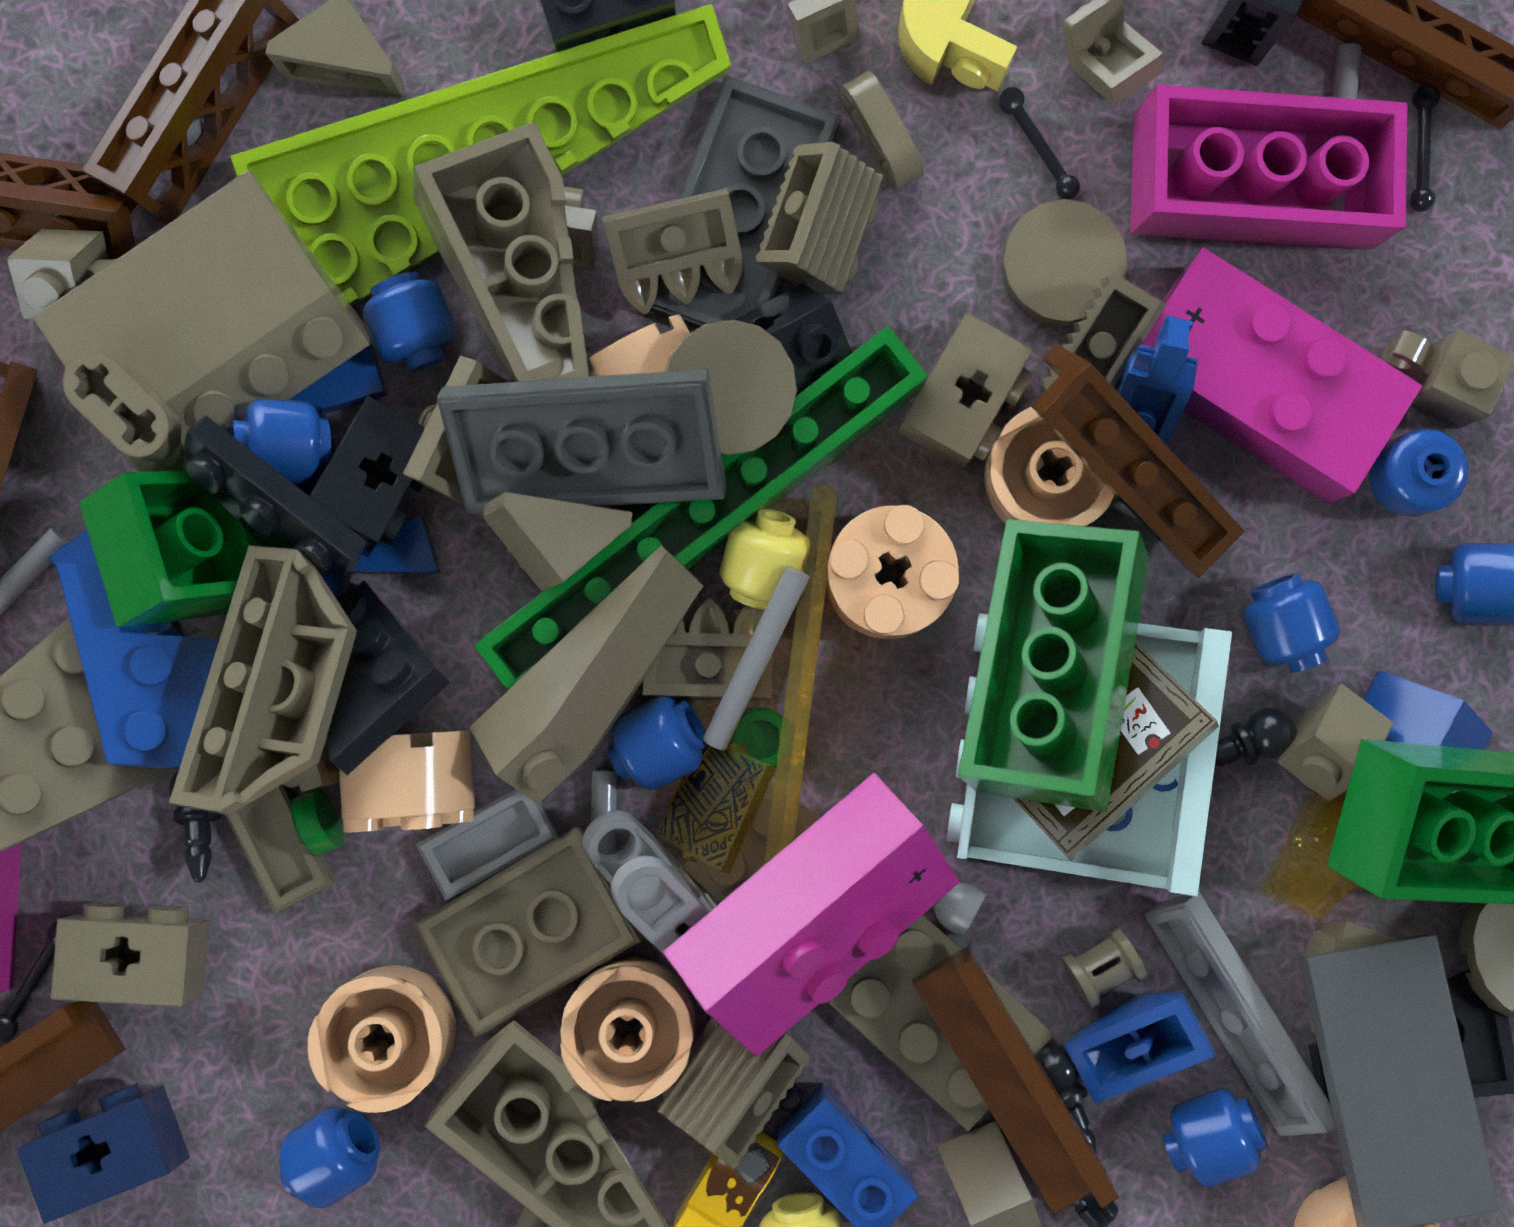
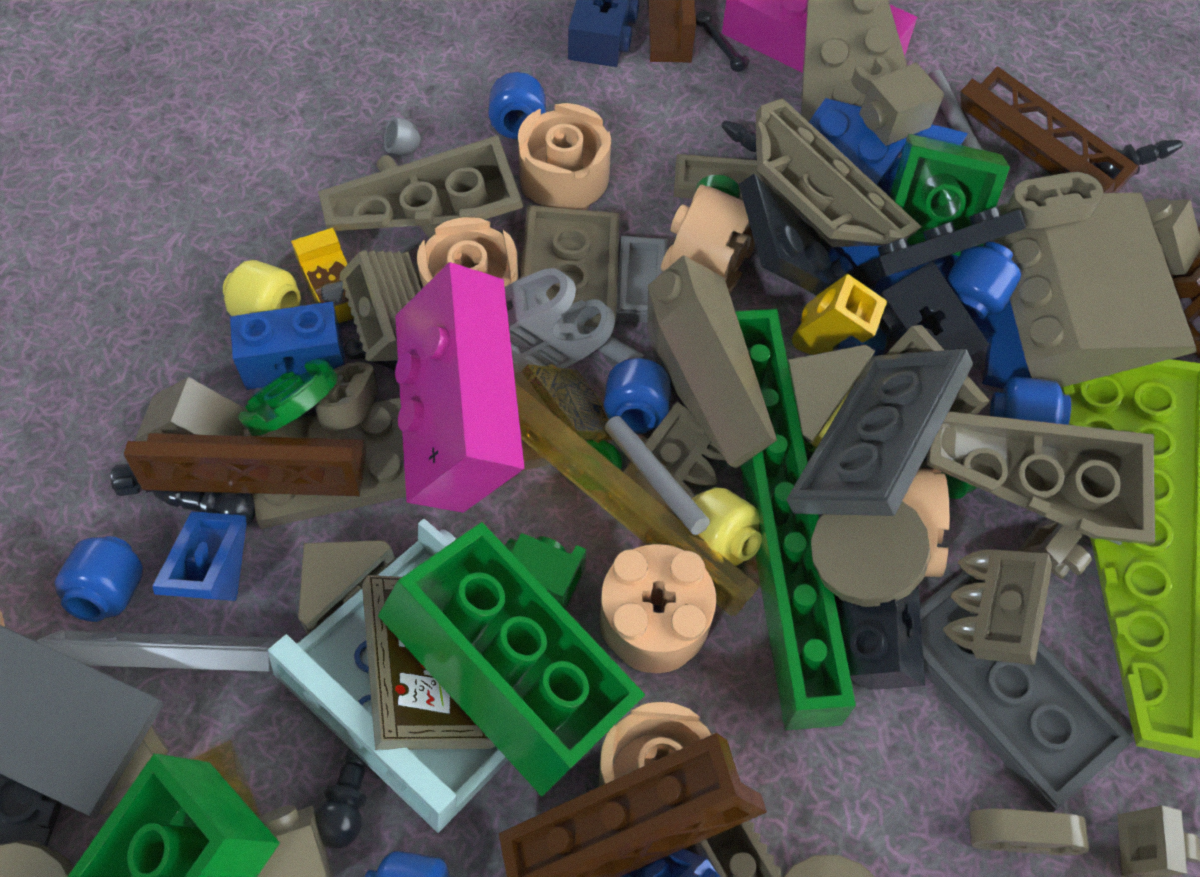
camera: 120 degrees right, 25 degrees down
(75, 665) = (896, 100): none -> dark tan brick
(95, 969) = (700, 78): dark tan brick -> none
(426, 576) = (838, 313): none -> yellow leg
(820, 218) = (971, 728): dark tan brick -> none
(871, 1060) = (349, 398): none -> dark tan beam
(915, 1103) = (287, 397): none -> green tile
(921, 712) = (550, 564): none -> green brick
(959, 908) = (388, 515): light grey hinge -> none
(977, 356) = (764, 724): dark tan brick -> none
(1065, 905) = (335, 574): none -> dark tan slope
(1127, 966) = (271, 562): dark tan bush -> none

